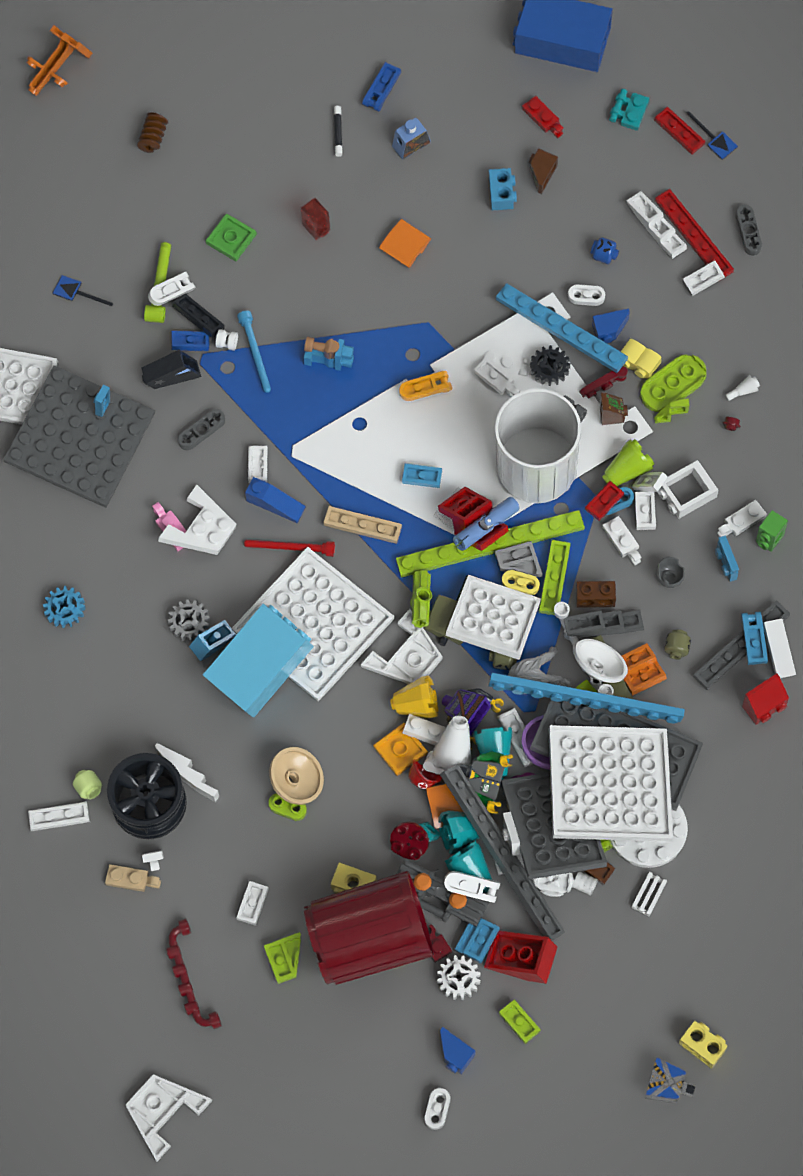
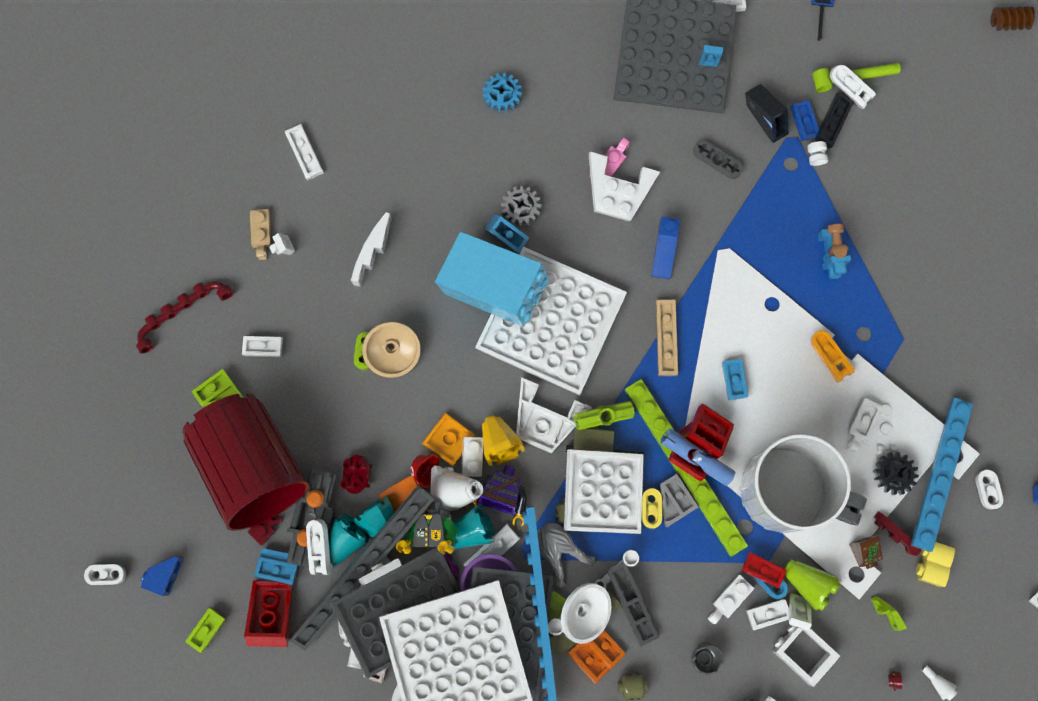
camera: 75 degrees right, 10 degrees up
(87, 784) = (337, 165): yellowish green head -> none
(155, 824) = (313, 199): black wheel -> none
(156, 1104) = (56, 318): white wing -> none
(231, 237) = (928, 125): bright green tile -> none
(245, 319) = (845, 164): dark azure piece -> none
(257, 462) = (698, 221): white plate -> none
(315, 219) = (975, 196): clear red brick -> none
(326, 548) = (632, 311): red piece -> none
(346, 874) = (307, 444): light yellow brick -> none
(405, 243) = (982, 291): orange slope -> none
(432, 833) = (371, 490): teal tile -> none
(450, 979) = (230, 552): white gear -> none
(554, 576) = (668, 541): lime plate -> none
(595, 594) = (661, 588): reddish brown brick -> none
(609, 325) = (962, 522): blue slope -> none
(673, 382) = (922, 606): lime tile -> none

